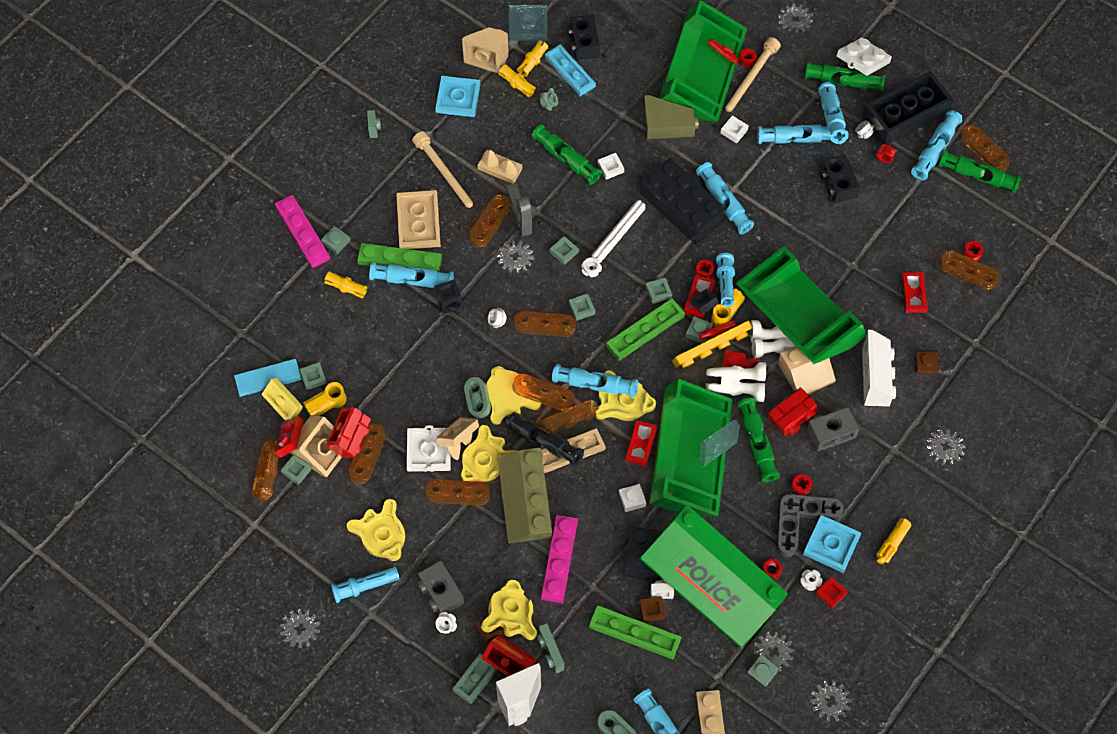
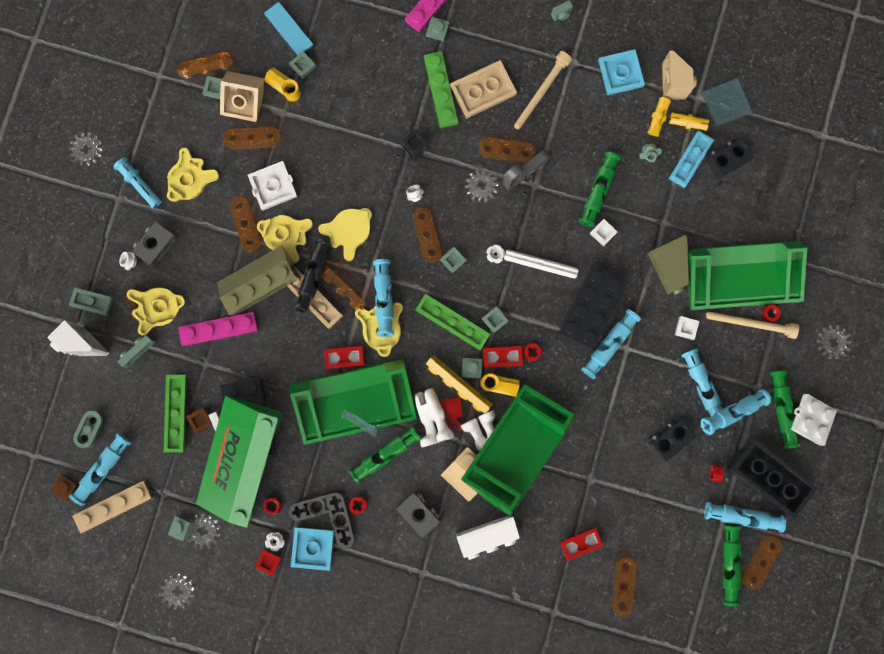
camera: 65 degrees right, 20 degrees up
(282, 399) = (270, 50): light yellow plate -> none
(289, 436) = (236, 69): red piece -> none
(345, 284) = (397, 55): yellow pin -> none
(348, 432) = (256, 115): brick -> none
(400, 274) = (424, 94): medium azure piece -> none
(456, 433) = (289, 202): tan tile -> none
(477, 399) = (333, 206): sand green plate -> none
(499, 166) = (565, 137): tan tile -> none
(507, 656) = (112, 321): red brick -> none
(550, 398) = (359, 249): clear orange plate -> none
(564, 250) = (502, 224): sand green plate -> none
(632, 498) = (293, 368): white plate -> none
(704, 301) = (493, 363): black plate -> none
(716, 331) = (473, 385): red piece -> none
(723, 50) = (767, 289): red piece -> none
(725, 273) = (532, 372): medium azure pin -> none
(792, 412) = (419, 475): red brick -> none
(864, 129) = (734, 445): white plate -> none
(890, 545) = (334, 599): yellow piece -> none
(926, 362) = (516, 576): reddish brown plate -> none
(950, 453) = (435, 611): clear gear -> none
(976, 246) = (652, 584): red bush -> none

